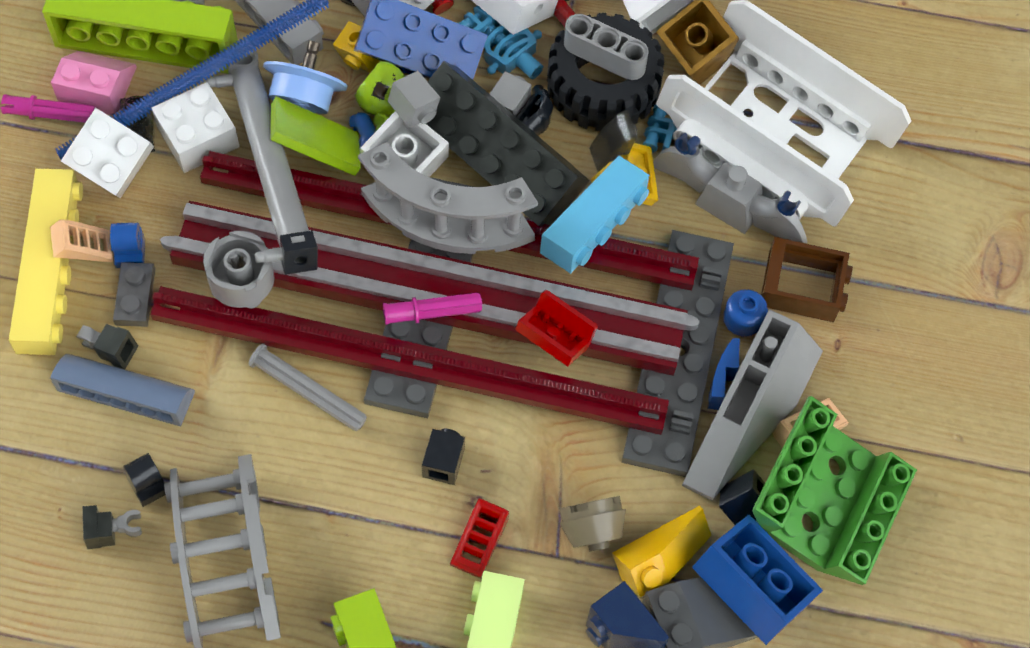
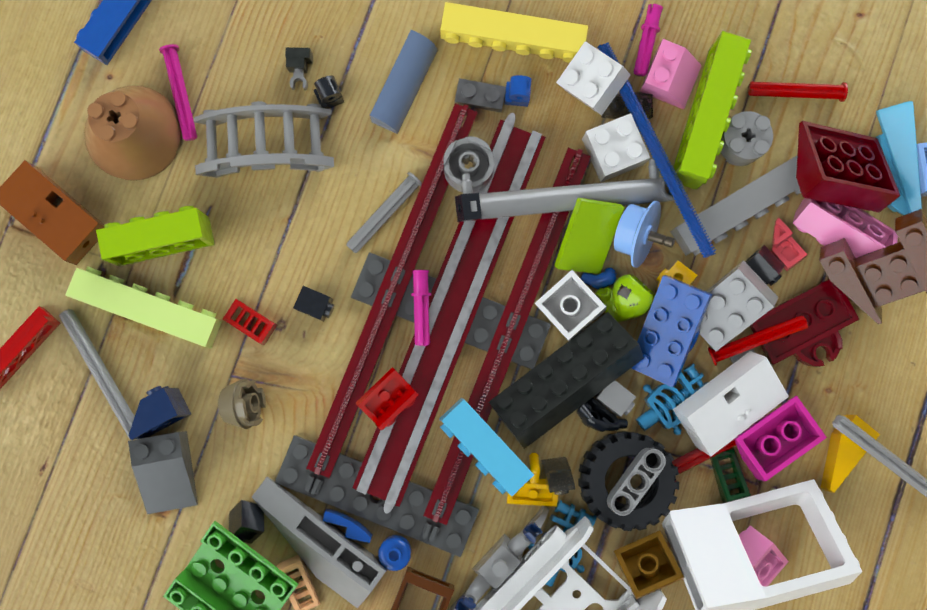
camera: 95 degrees right, 20 degrees up
(63, 248) = (517, 40): light nougat slope -> none
(112, 344) = (437, 75): pearl dark grey piece -> none
(414, 99) = (603, 315): light grey brick -> none
(446, 214) = (489, 321): light grey fence -> none
(662, 552) = (211, 449): yellow slope -> none
(757, 579) = (174, 516): blue brick -> none

